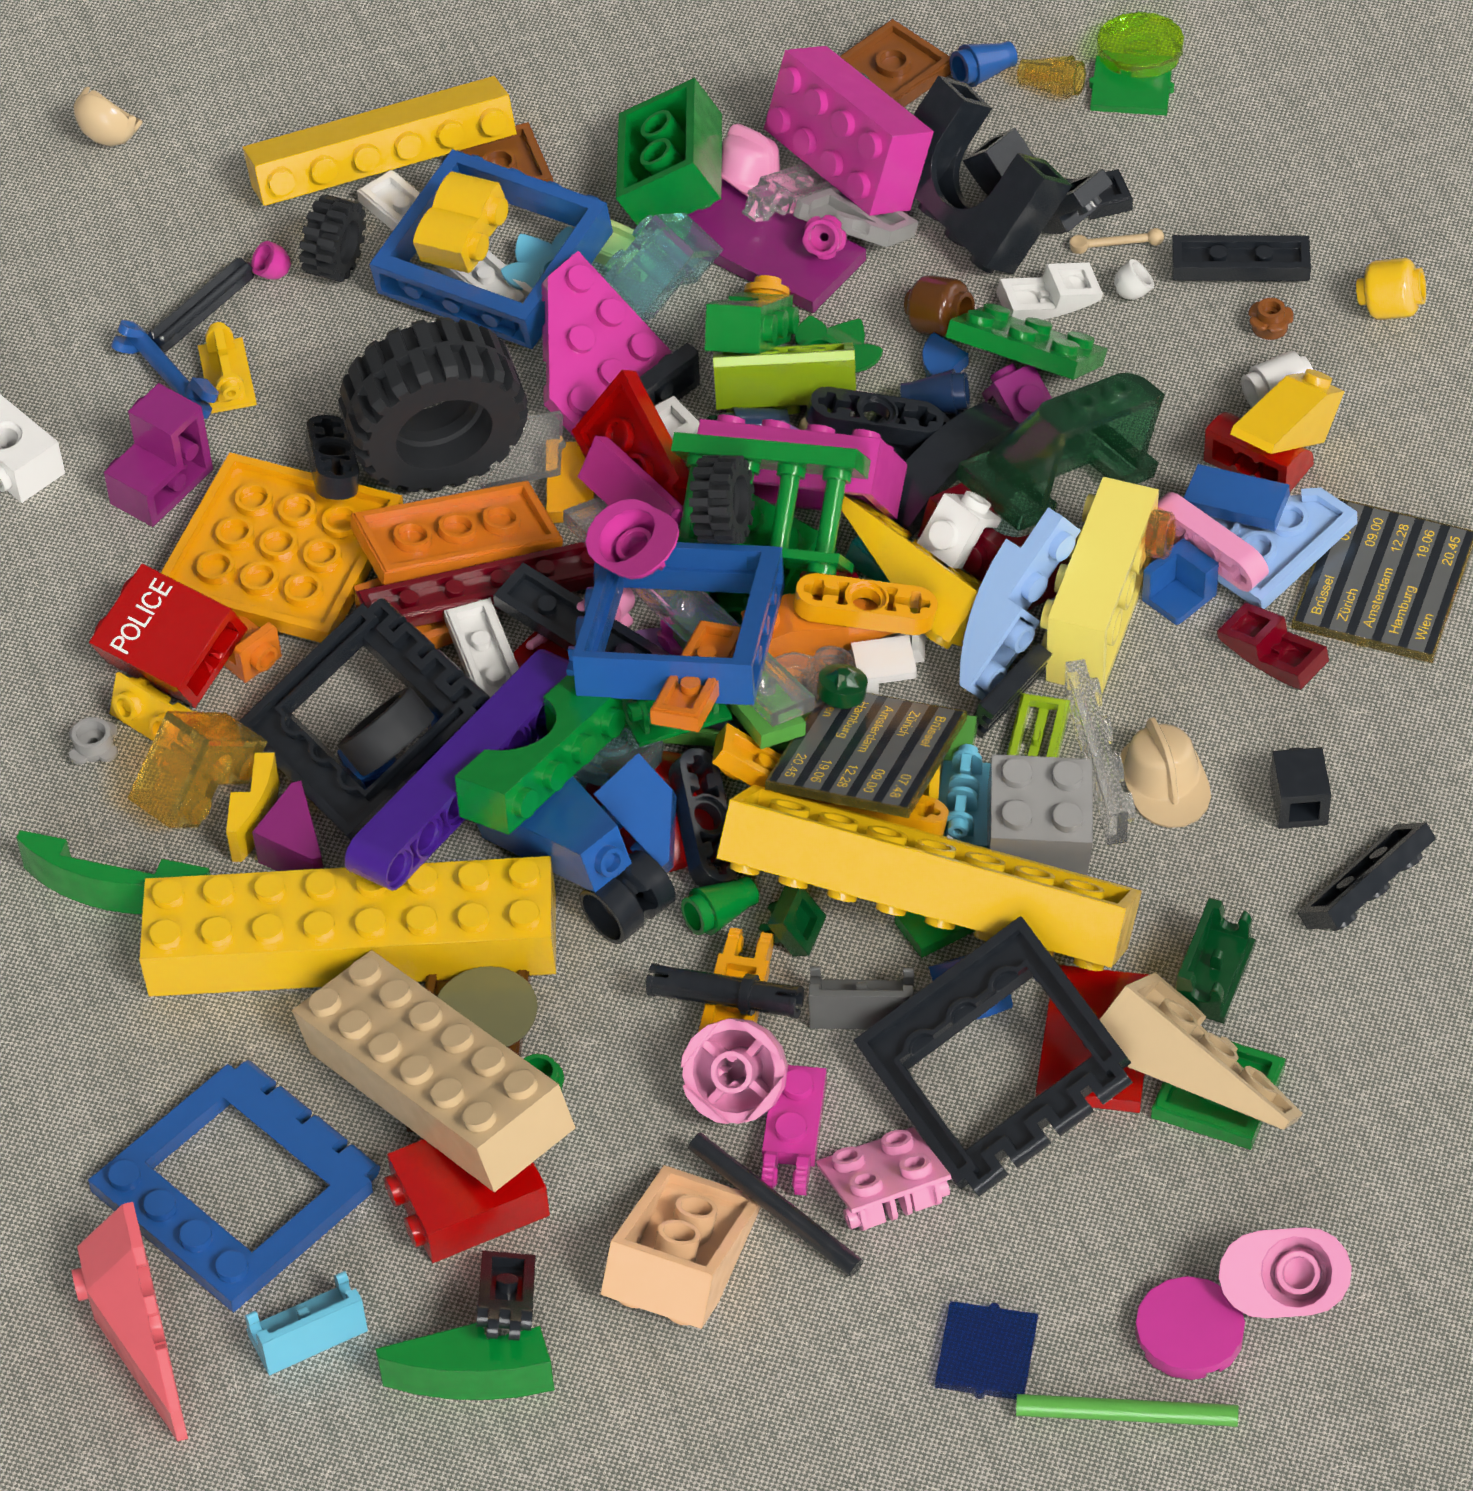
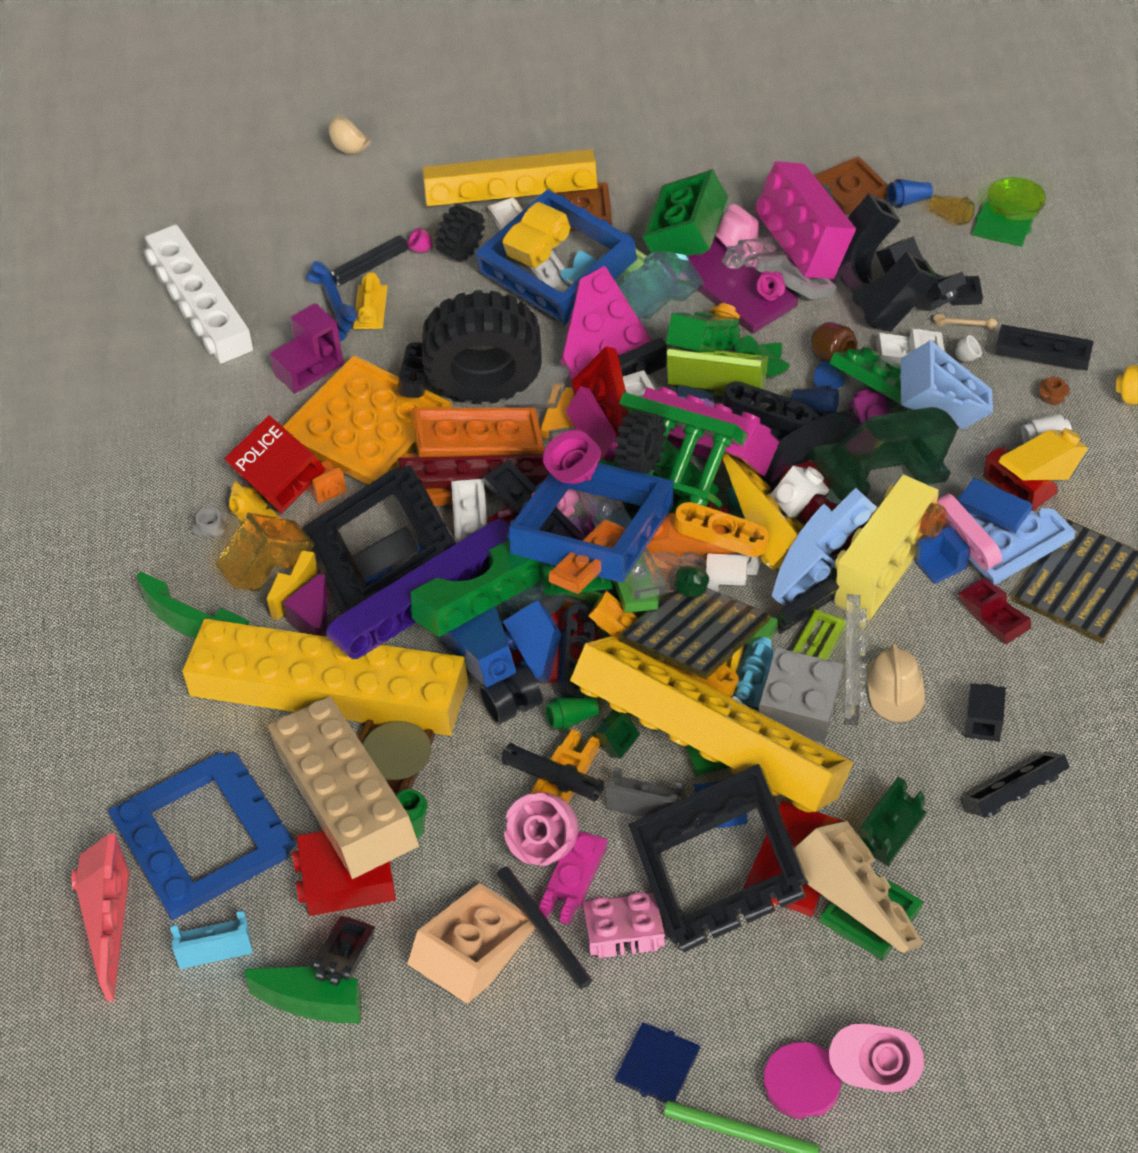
camera: 15 degrees right, 0 degrees up
(1115, 335) = (939, 381): none -> light blue wedge

